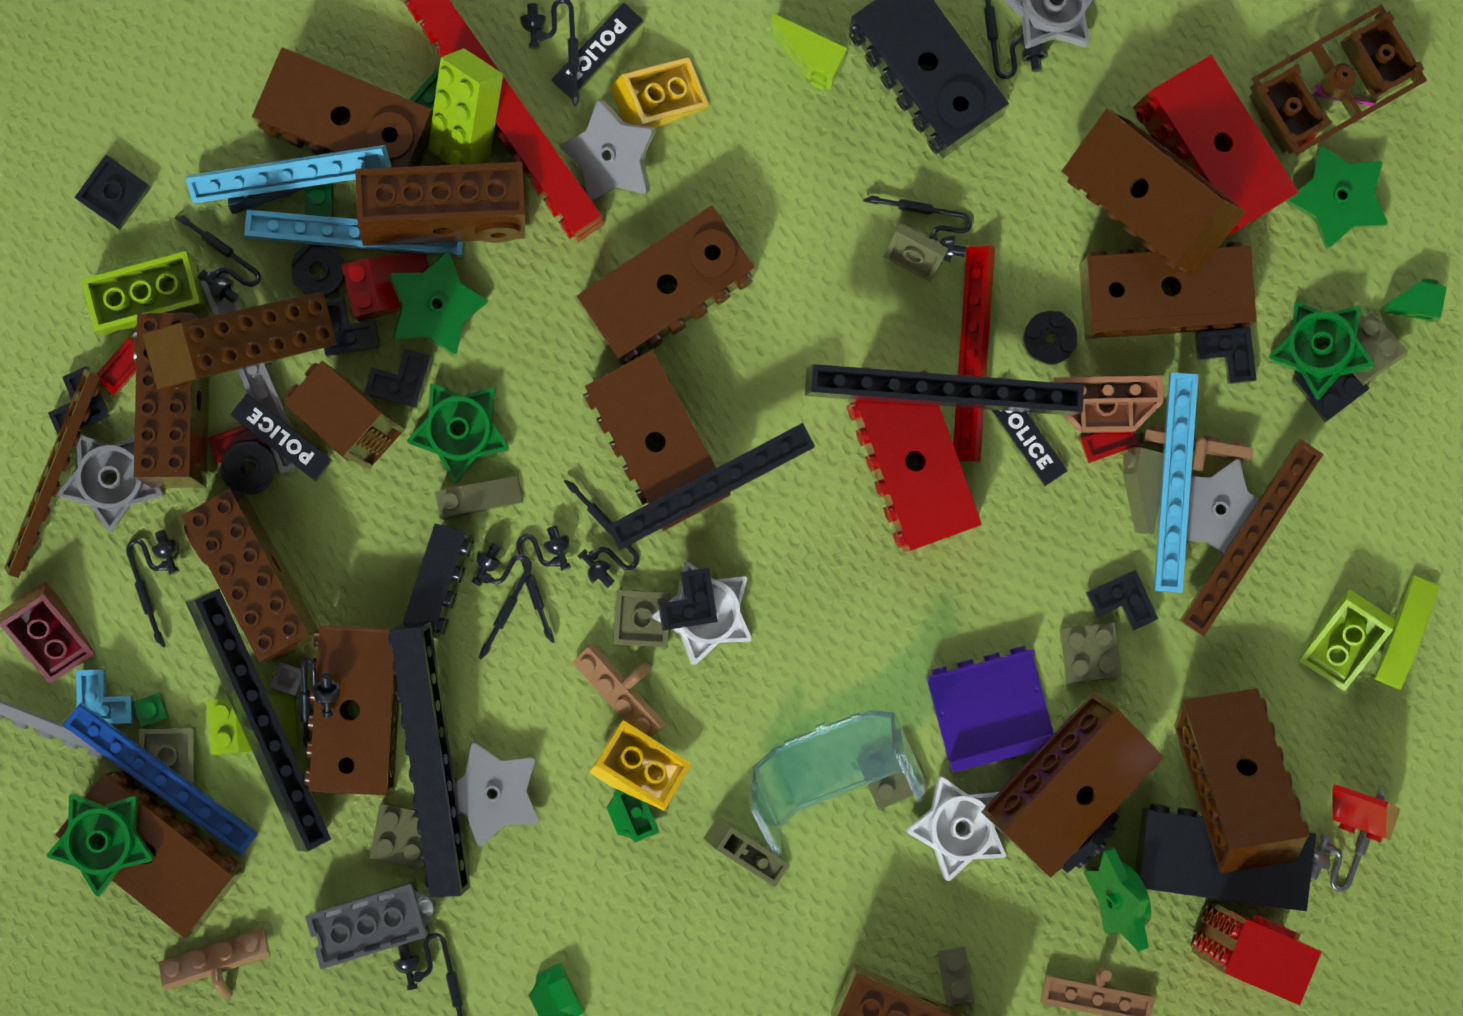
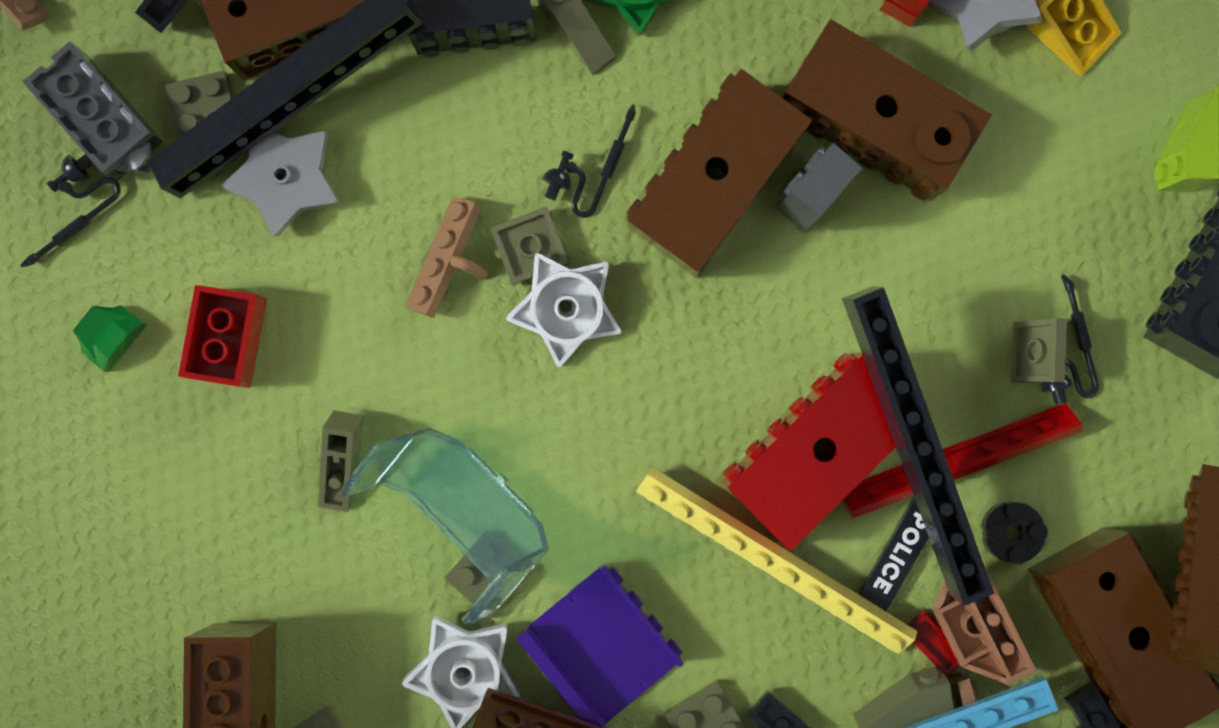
camera: 60 degrees right, 0 degrees up
(490, 563) = (515, 67): black piece -> none
(556, 546) = (563, 125): black piece -> none
(603, 900) = (222, 336): none -> red brick
(632, 817) = (328, 328): green slope -> none
(640, 766) = (375, 312): yellow slope -> none
(697, 606) = (566, 292): black plate -> none
(705, 364) = (817, 186): none -> dark grey brick
(711, 486) = (698, 246): black plate -> none
(985, 538) = (776, 561): none -> light yellow plate

